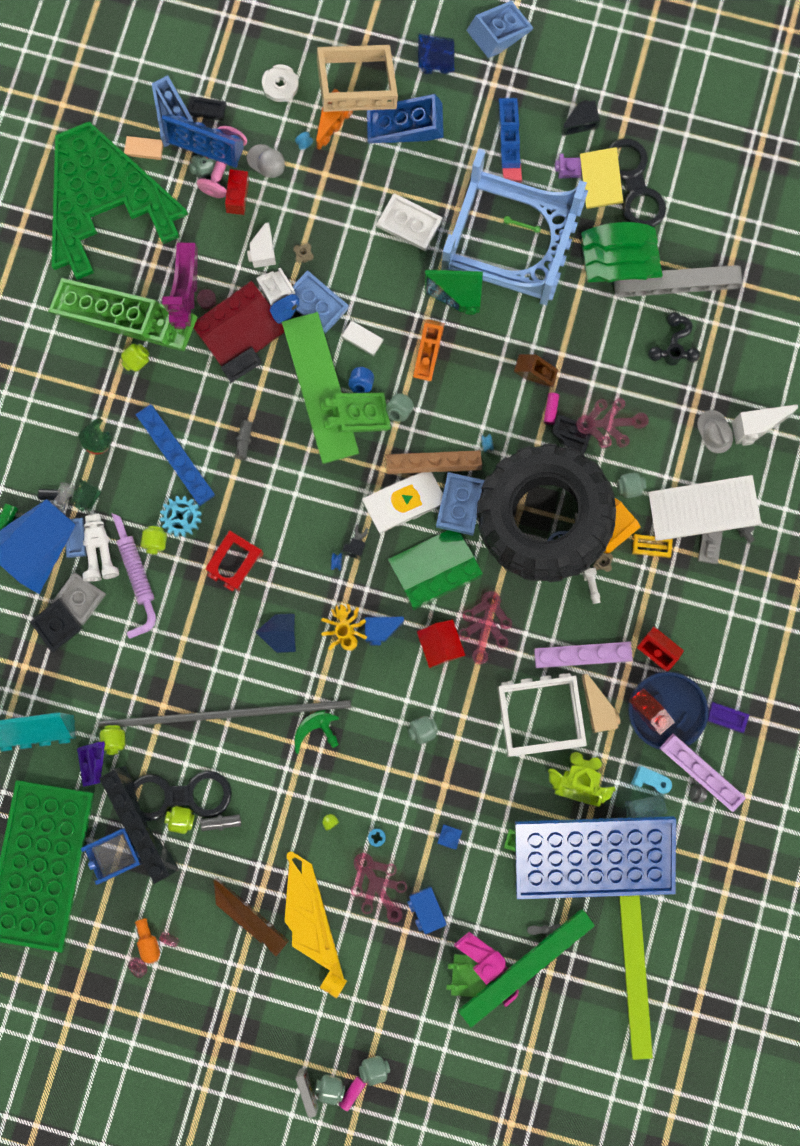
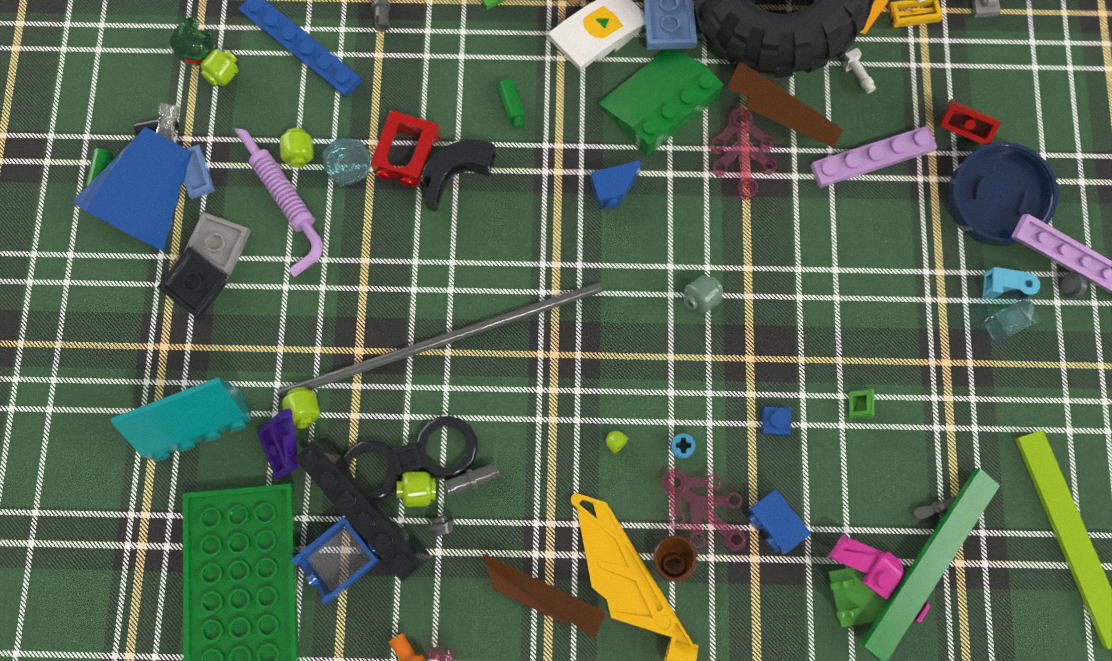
camera: 15 degrees left, 5 degrees down
(85, 496) = (197, 116): clear green window -> none
(95, 537) = (219, 165): white piece -> none
(111, 461) = (219, 67): none -> lime head
(187, 512) = (322, 122): medium azure gear -> none
(188, 560) = (346, 161): none -> clear light blue hat
(190, 850) = (441, 525): none -> dark grey plate
(265, 579) = (454, 159): none -> black arch
(279, 633) = (487, 222): dark blue slope -> none
(313, 721) = (559, 320): green piece -> none
(322, 544) = (511, 103): none -> green cylinder
(336, 561) = (535, 119): blue bush -> none
(343, 630) = (568, 194): yellow animal -> none
(347, 917) = (675, 558): none -> reddish brown piece
(356, 545) = (555, 97): black piece -> none
(440, 643) = (692, 185): red slope -> none
(521, 603) = (781, 106): none -> reddish brown wedge
(545, 681) = (887, 218): white window -> none
(581, 781) = (921, 311): lime piece -> none
(595, 857) = (975, 395): plate -> none
(600, 710) = (917, 213): tan slope -> none
(607, 565) = (868, 40): dark tan plate -> none
(651, 712) = (987, 197): clear red slope -> none
(727, 717) = (1079, 187): dark purple tile -> none

